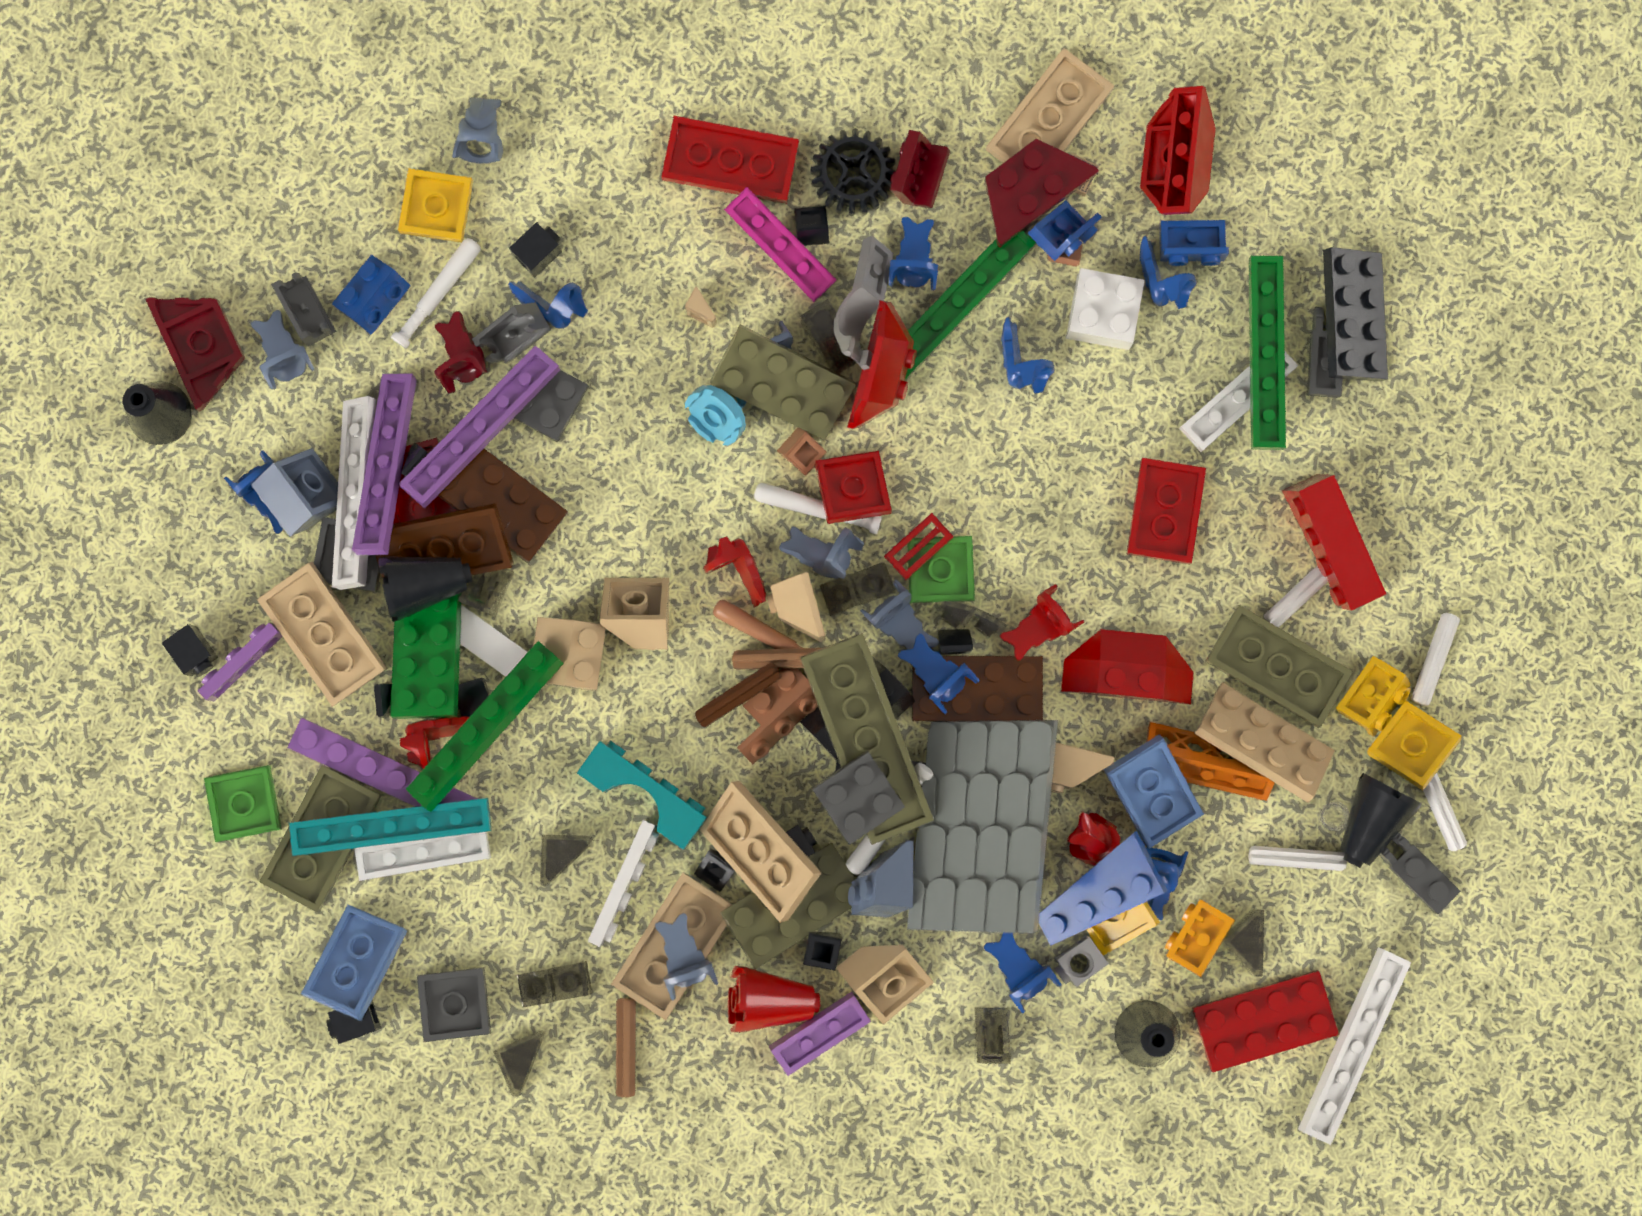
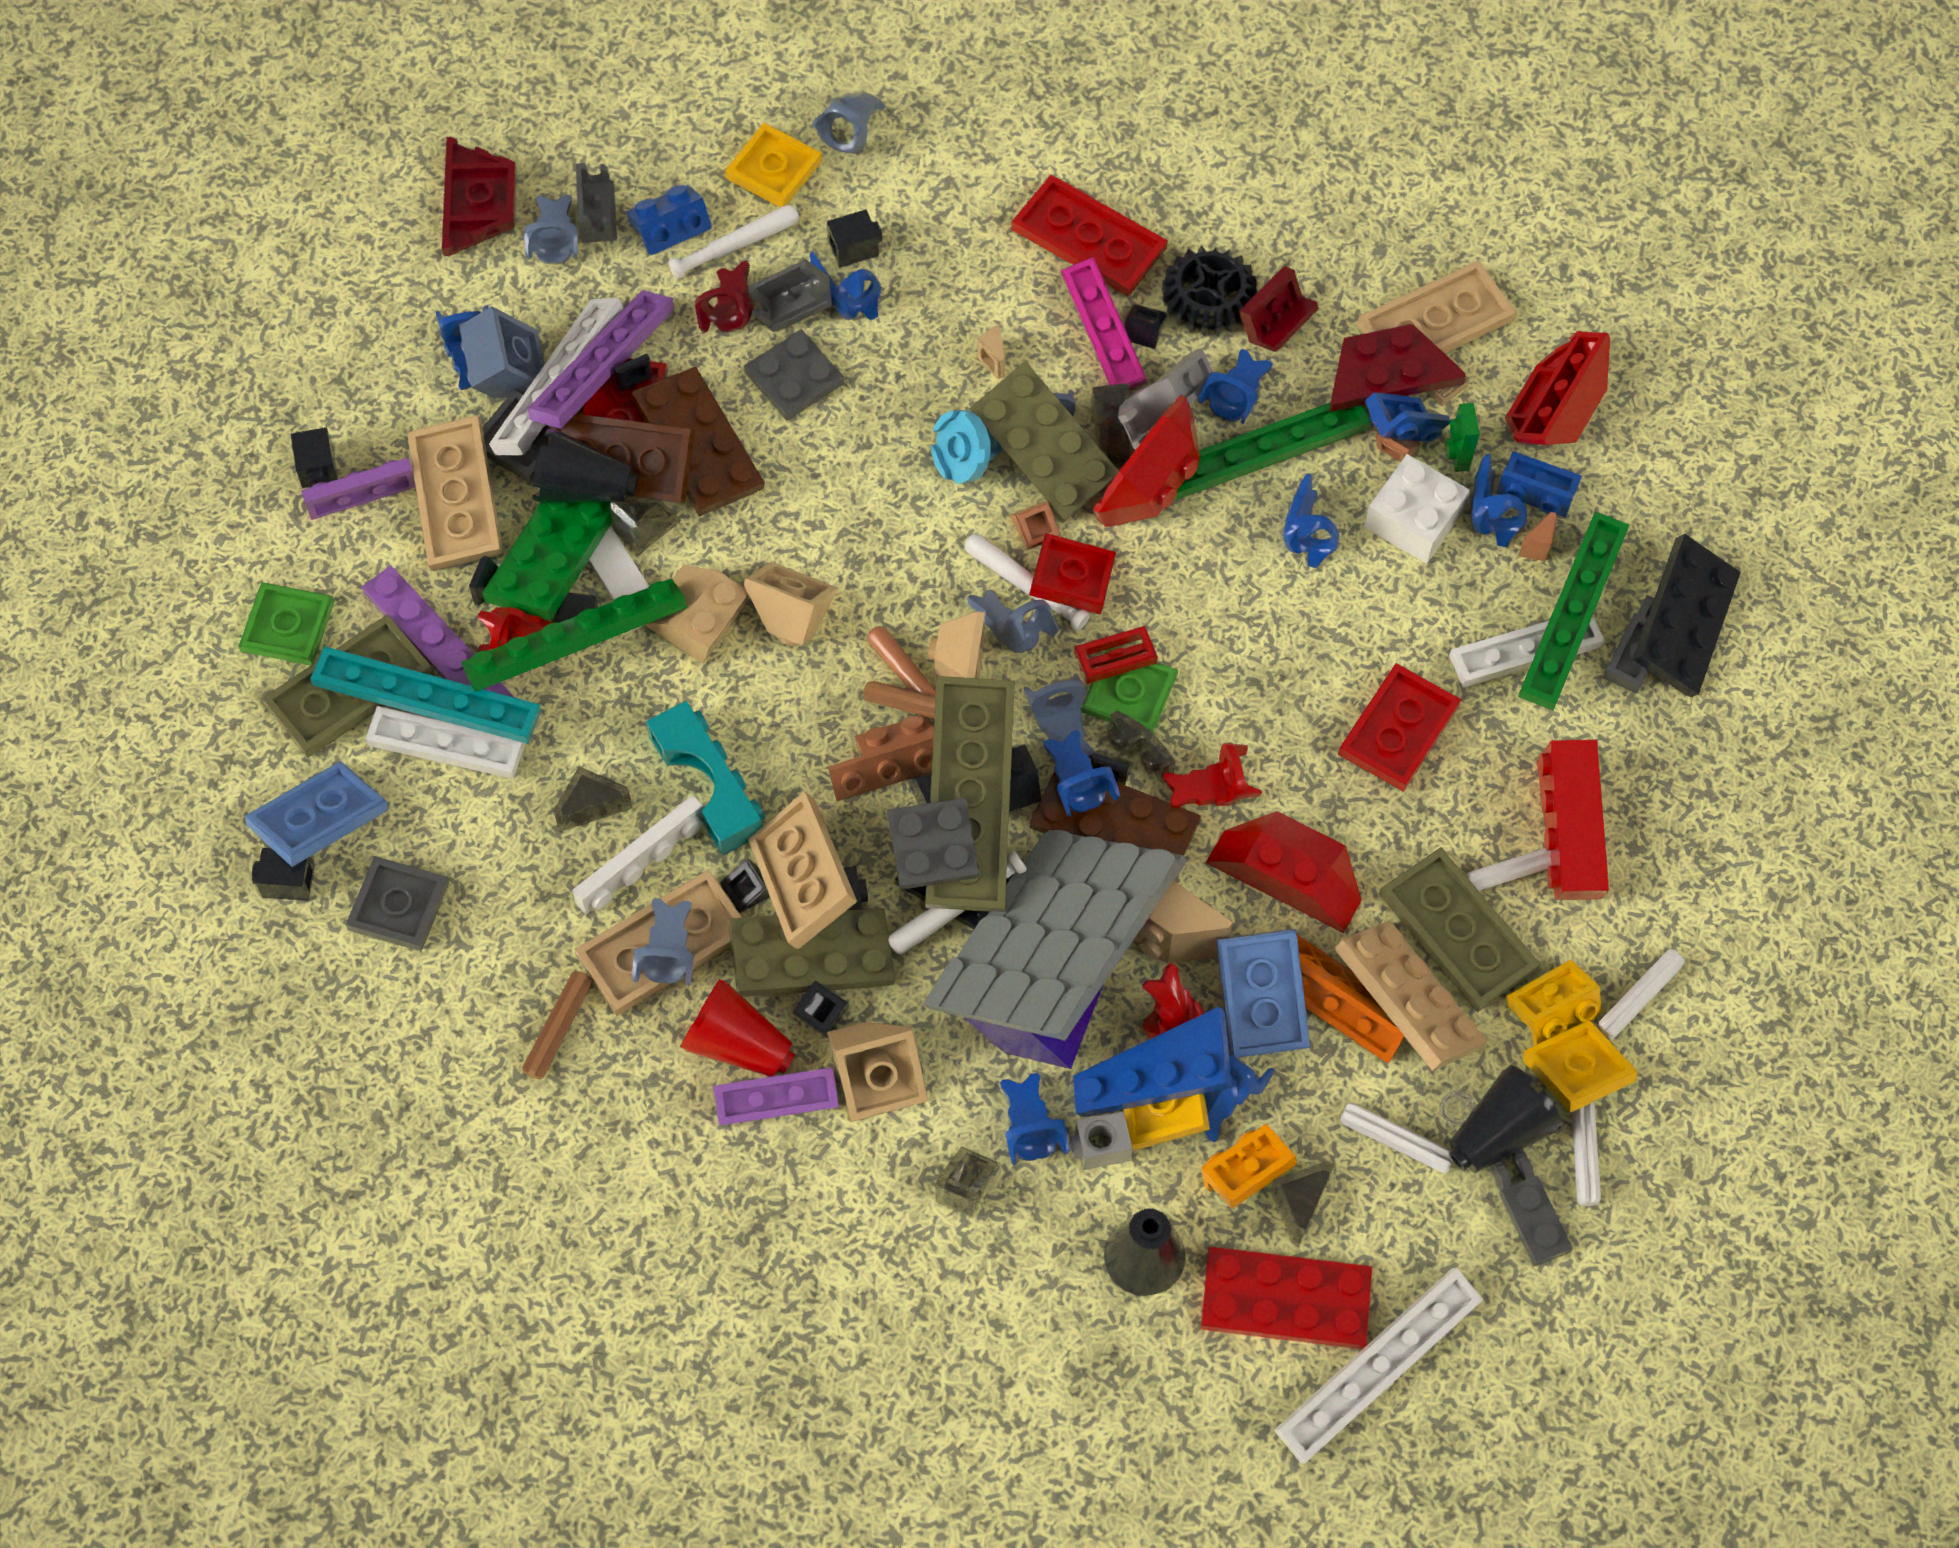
camera: 20 degrees right, 20 degrees down
(157, 411) = (400, 231): black cone -> none
(479, 426) = (714, 360): medium lavender plate -> none
(518, 1059) = (437, 984): clear smoke slope -> none
(554, 984) = (515, 931): clear smoke slope -> none
(738, 554) = (921, 593): red hair -> none
(738, 695) = (854, 720): reddish brown axle -> none
(857, 589) = (1031, 671): clear smoke slope -> none
(885, 884) = (918, 958): sand blue slope -> none
(1119, 231) = (1463, 437): none -> green plate
(1215, 292) = (1540, 539): none -> nougat slope

